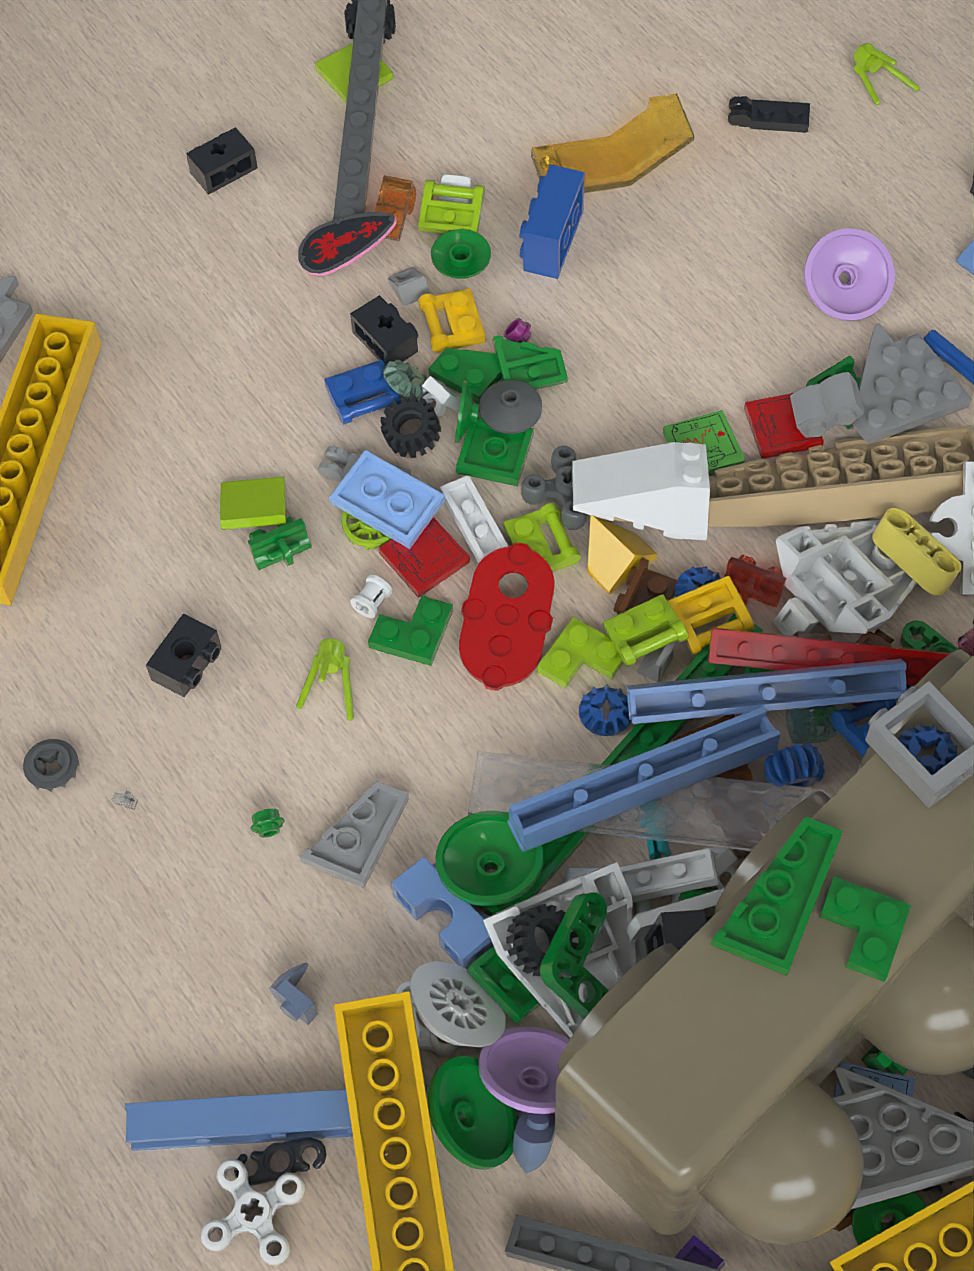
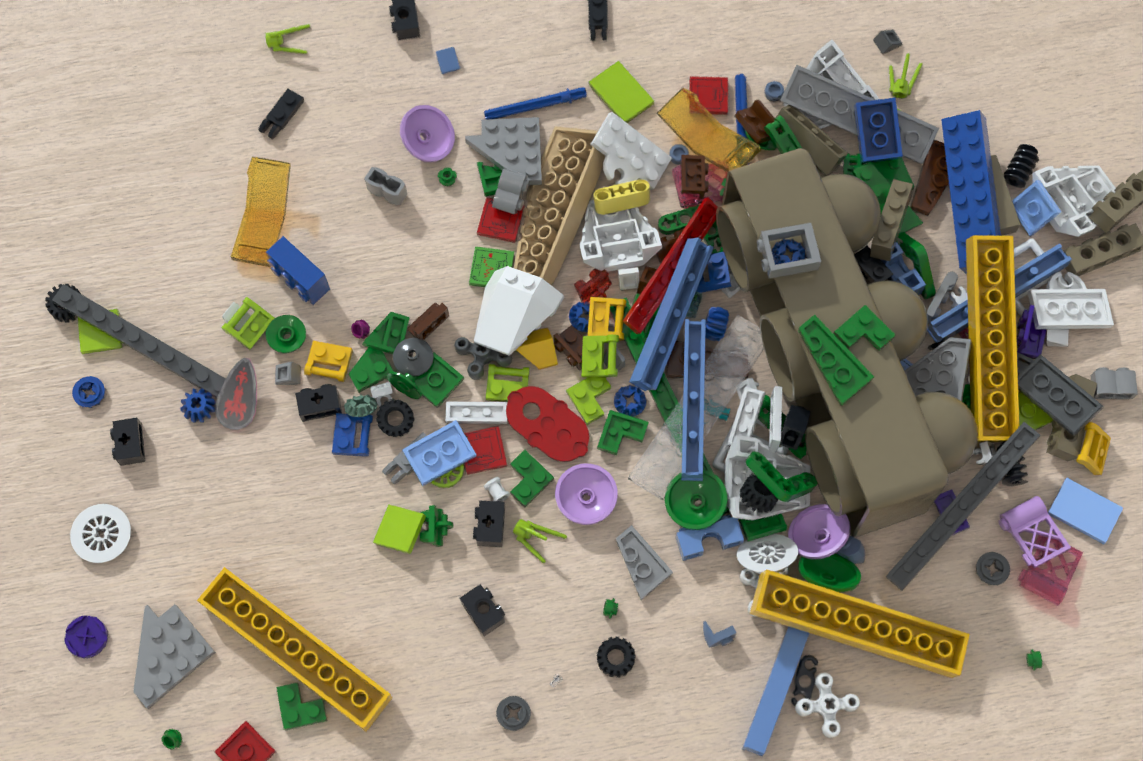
camera: 65 degrees left, 10 degrees up
(65, 188) = (84, 520): none -> white piece
(188, 845) = (620, 644): none -> black tyre
(257, 90) = (87, 383): none -> blue gear
(308, 207) = (190, 409): none -> blue gear
(332, 610) = (492, 535): none -> black brick
(398, 198) = (225, 353): clear orange plate -> none
(418, 691) = (581, 481): none -> lavender dish
(549, 708) = (620, 426): none -> green plate
(573, 403) = (429, 321): none -> reddish brown bracket
(740, 264) = (385, 186): none -> light grey brick
(805, 339) = (447, 181): none -> green plate

